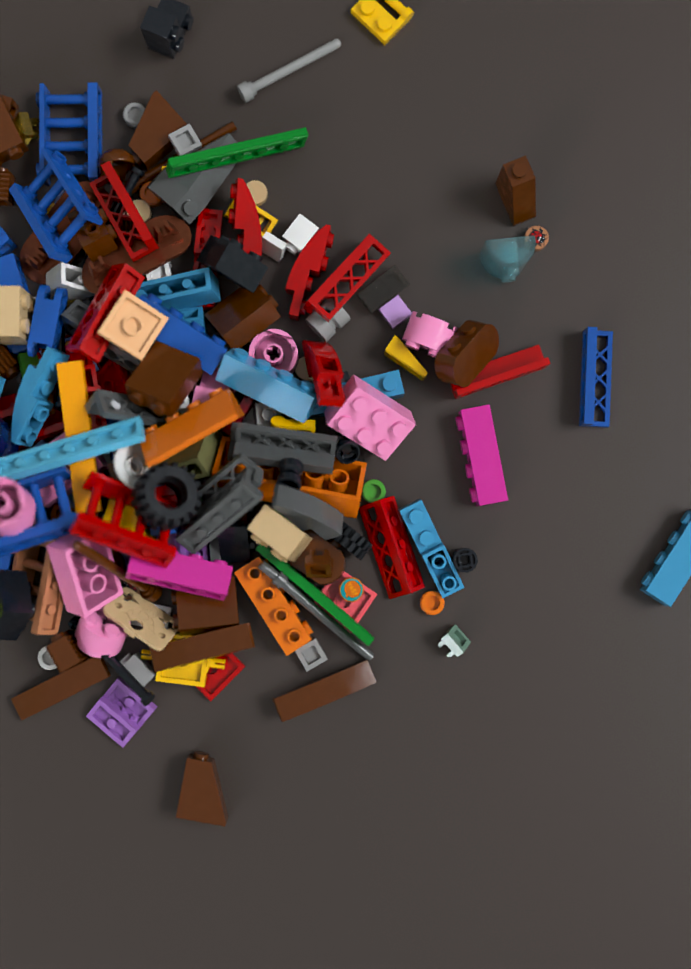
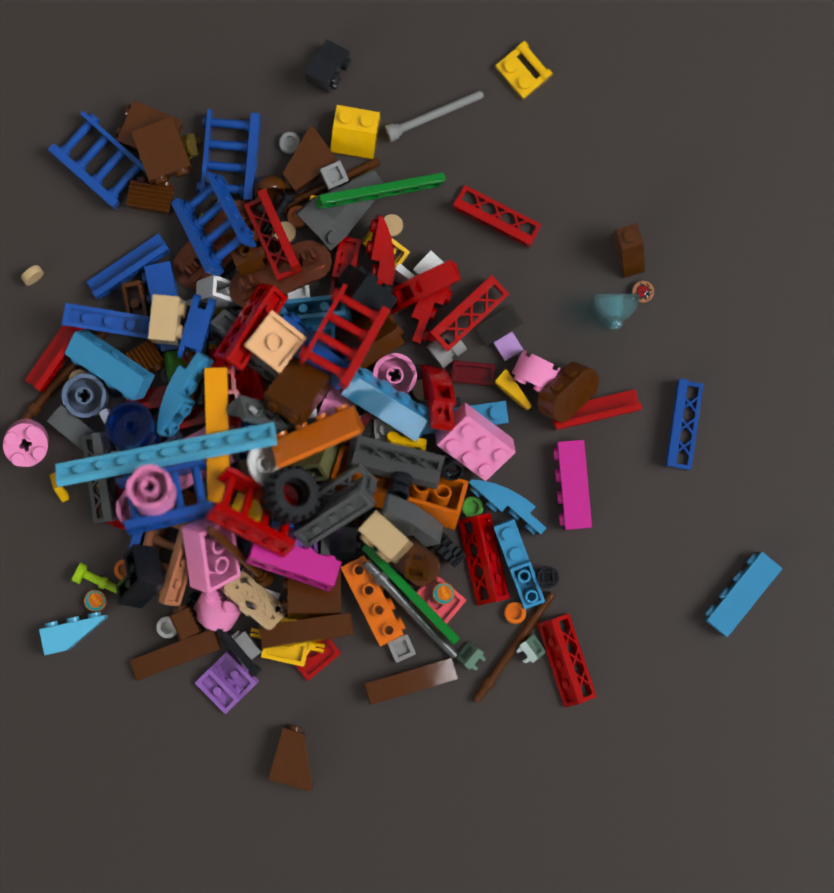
camera: 10 degrees right, 0 degrees up
(204, 94) = (355, 132): none -> yellow slope
(225, 332) = (365, 336): none -> red fence
(295, 251) = (424, 285): none -> red slope
(360, 345) = (473, 373): none -> dark red tile
(367, 178) = (491, 220): none -> red fence
(387, 655) = (470, 655): none -> sand green tile
(404, 477) = (501, 497): none -> dark azure slope
(411, 682) = (489, 682): none -> reddish brown bar
(491, 652) = (563, 662): none -> red fence

